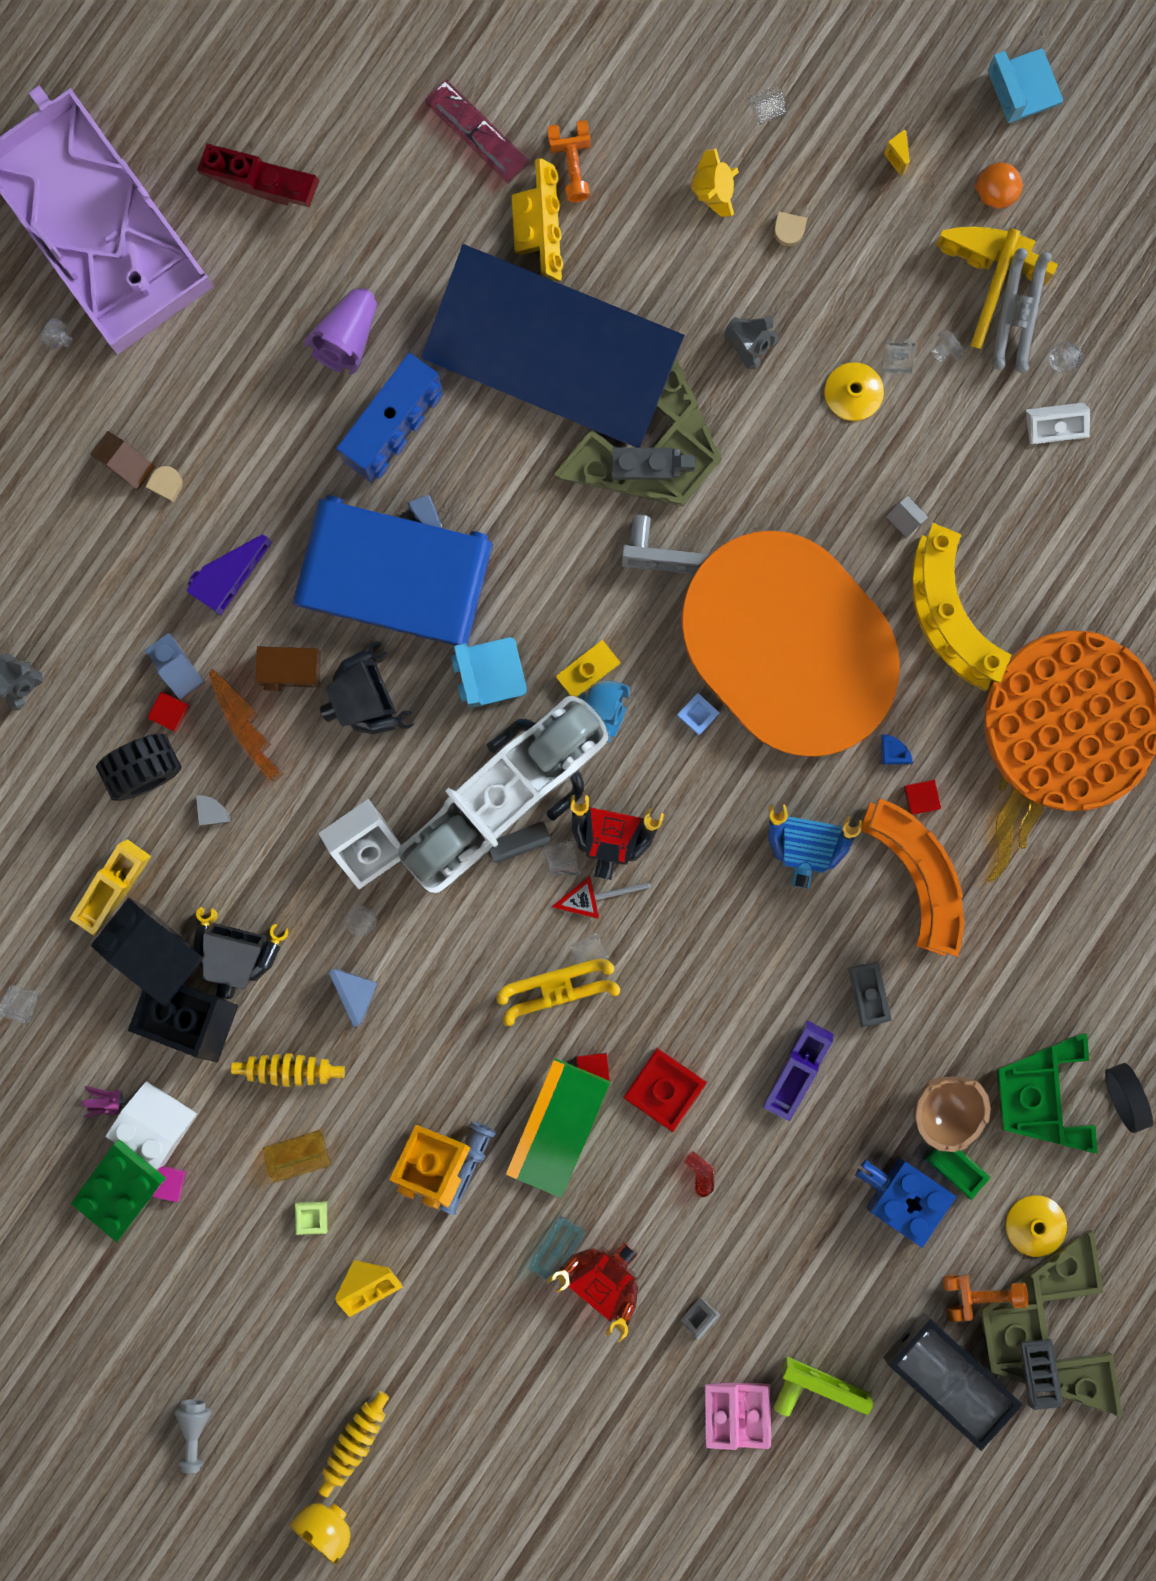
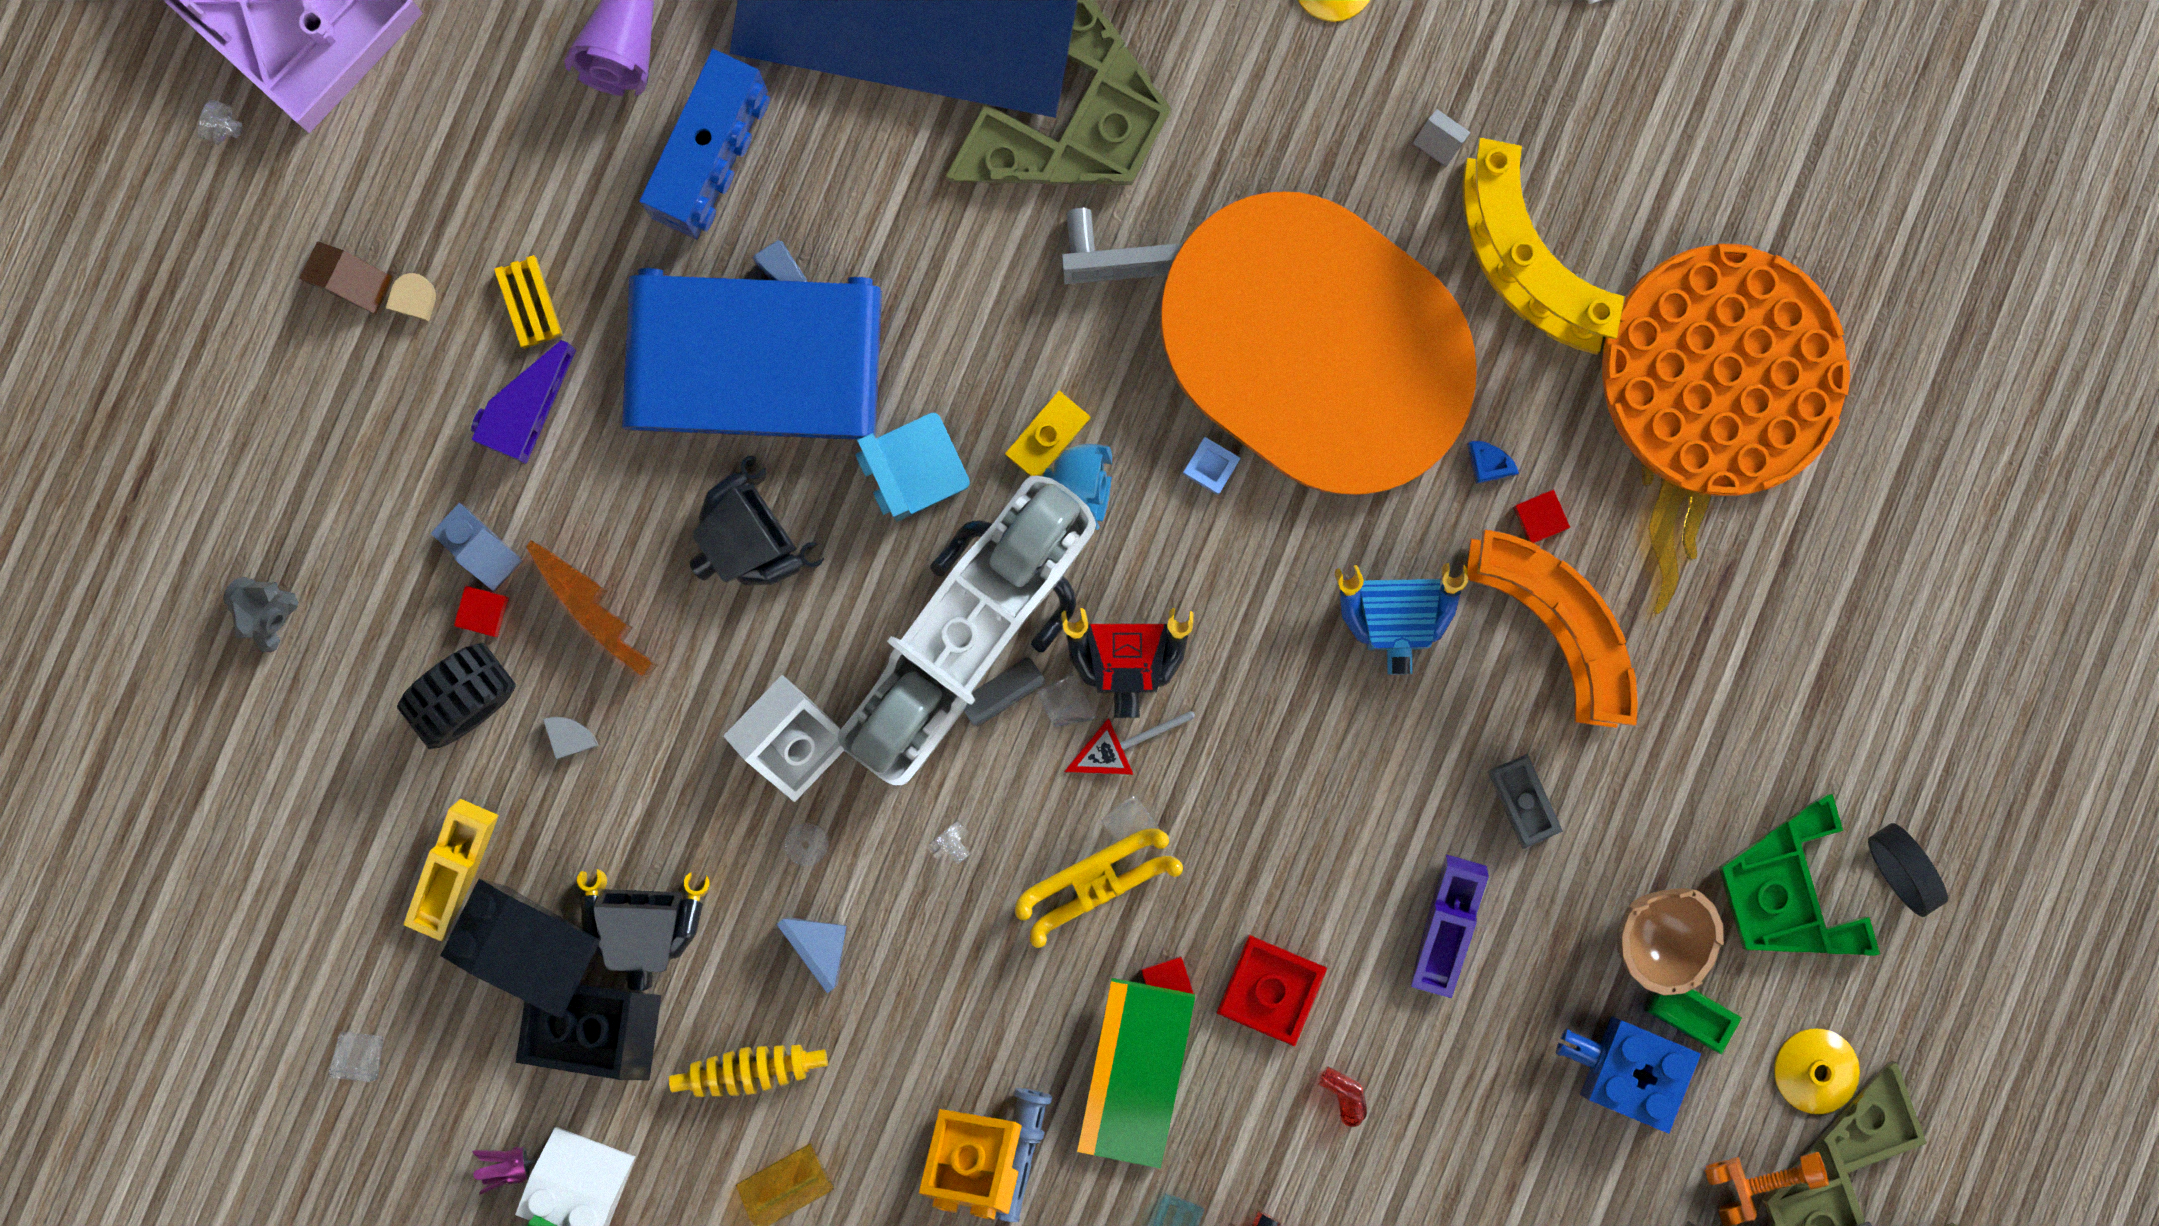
camera: 15 degrees left, 0 degrees up
(242, 478) = (517, 268): none -> yellow tile
(287, 667) = (633, 517): reddish brown brick -> none
(461, 940) = (950, 843): none -> clear tile
(650, 463) = (1074, 135): dark grey hinge -> none

